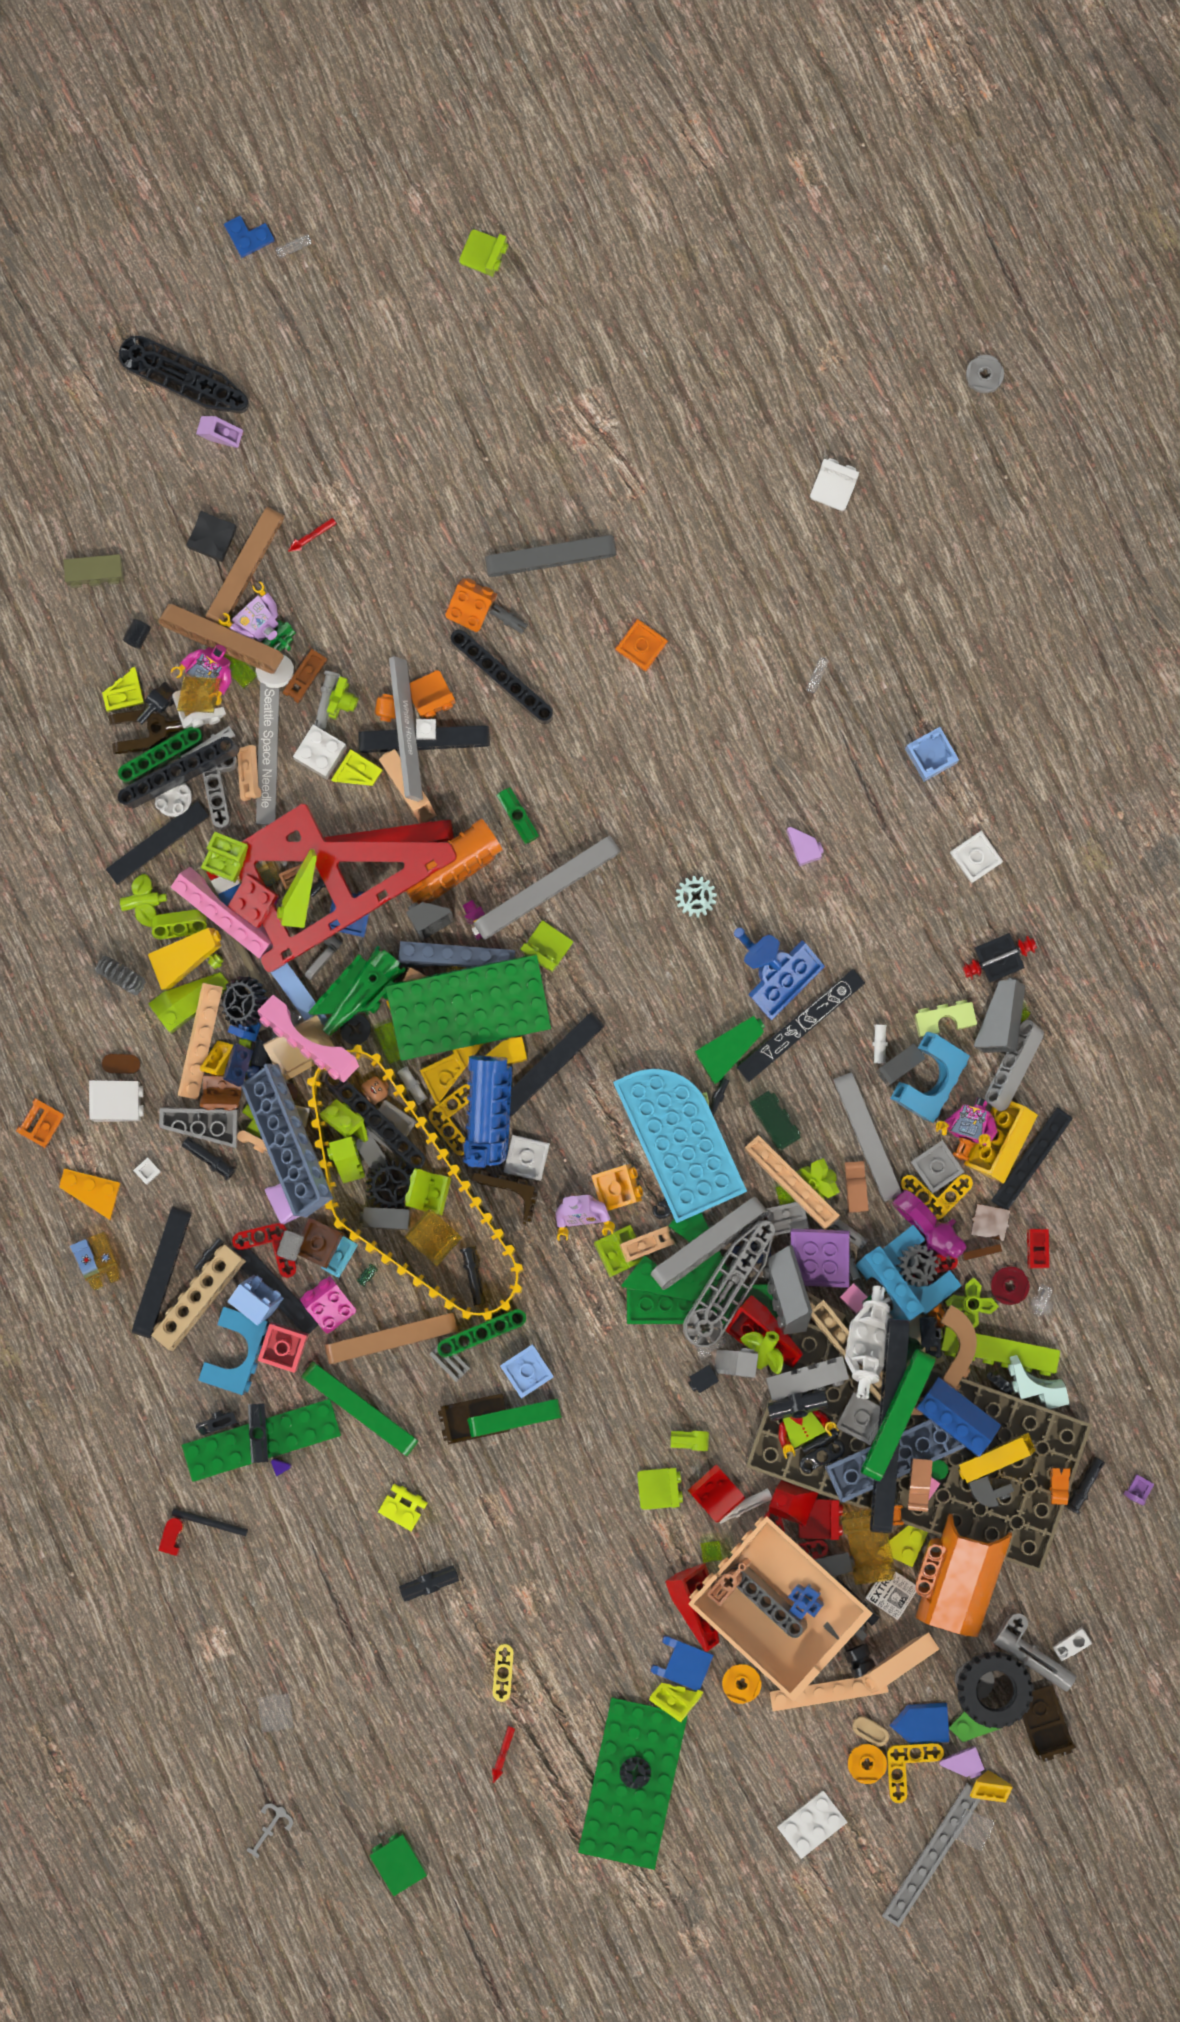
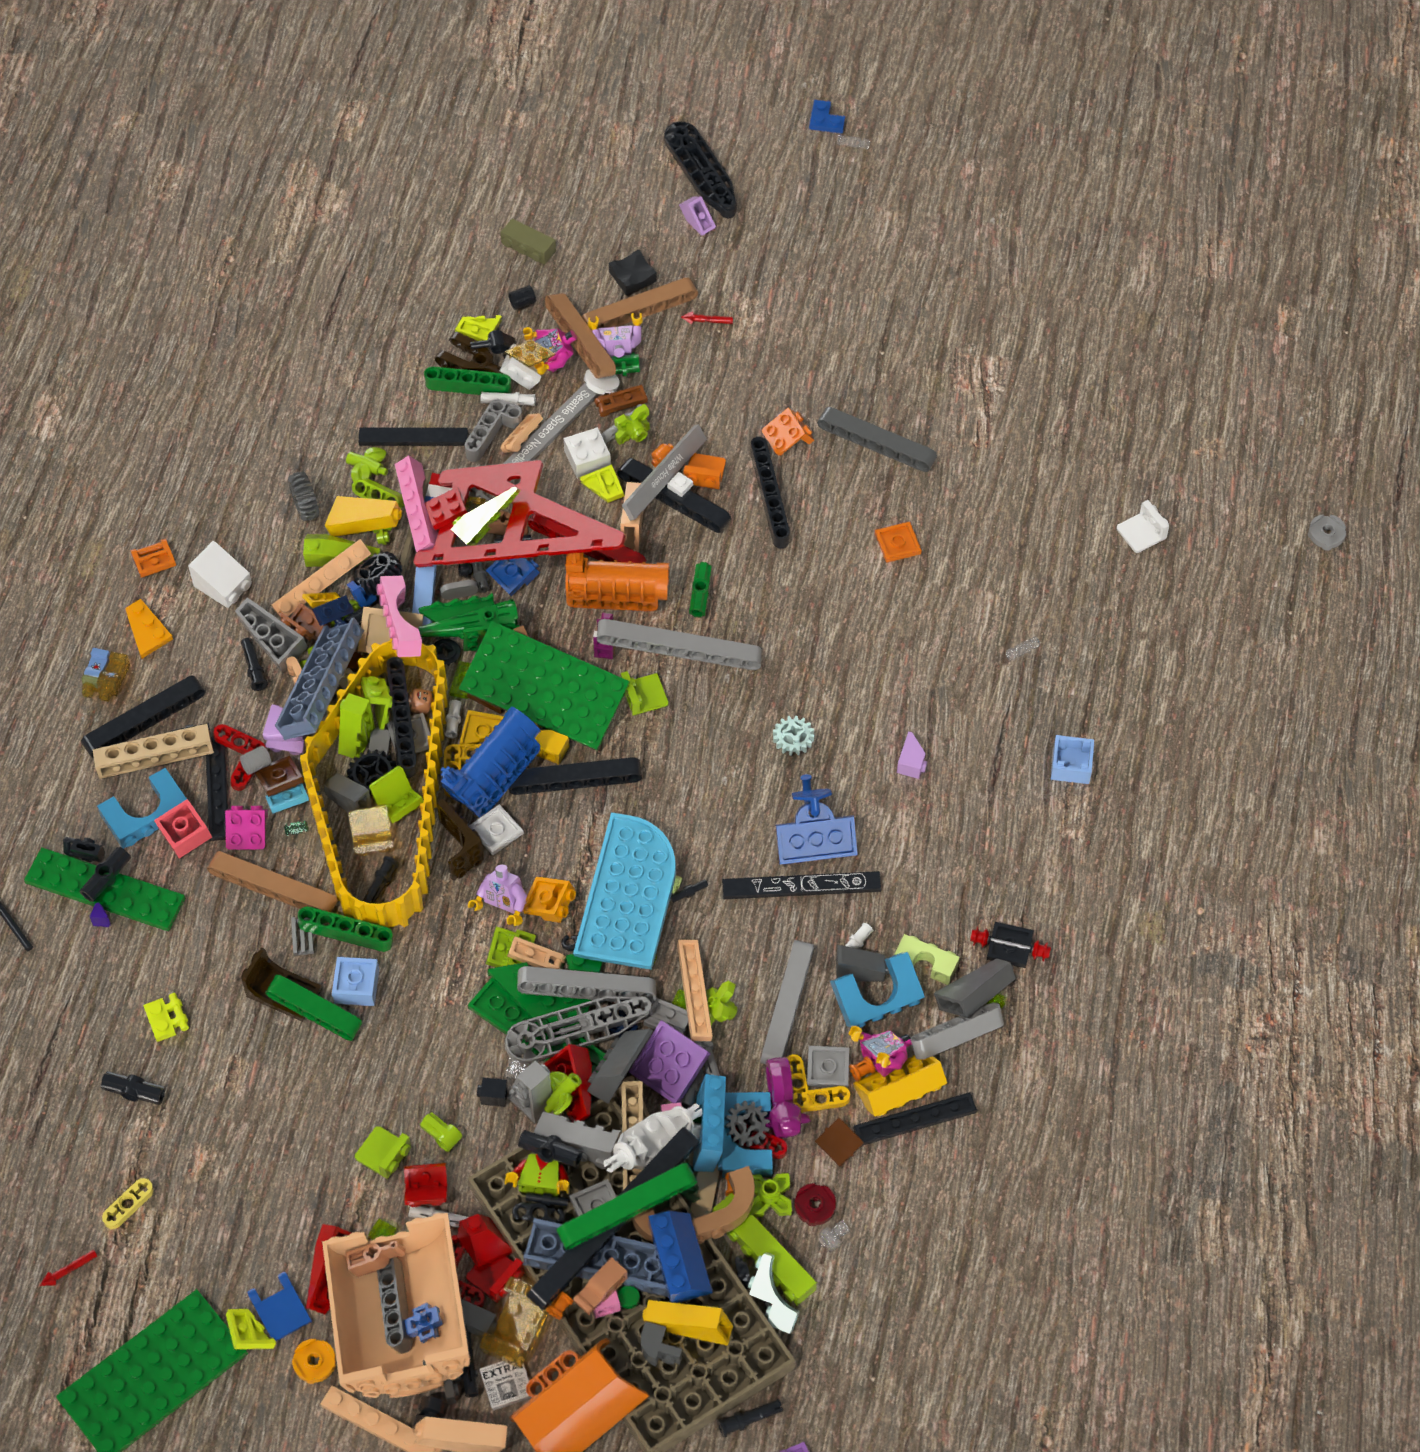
camera: 35 degrees right, 25 degrees down
(121, 1064) = (249, 559): reddish brown tile -> none
(147, 1171) = (199, 641): white plate -> none
(174, 801) = (451, 414): white dish -> none
(187, 772) = (469, 394): black beam -> none
(225, 857) = (453, 470): lime slope -> none
(240, 672) = (575, 367): clear neon green plate -> none
(255, 1299) = (193, 778): light blue container -> none
(359, 1408) = (200, 919): green beam -> none
(425, 954) = (547, 633): sand blue arch -> none
(428, 918) = (567, 602): dark grey slope -> none
(483, 252) = (992, 225): lime bracket -> none
(508, 618) = (809, 460): dark grey pin -> none
(643, 1768) = (158, 1372): black gear -> none
(726, 1050) = (728, 860): green slope -> none
(775, 1120) = (720, 938): clear green wedge -> none
(856, 1187) = (745, 1036): nougat piece -> none
(907, 1544) = (548, 1348): neon yellow wing -> none
(931, 1335) = (713, 1189): black piece -> none
(976, 857) = (1051, 860): white tile -> none
(981, 1252) = (811, 1159): reddish brown tile -> none
(1038, 1249) = (863, 1188): red brick -> none
(1059, 1485) = (725, 1386): orange leg -> none

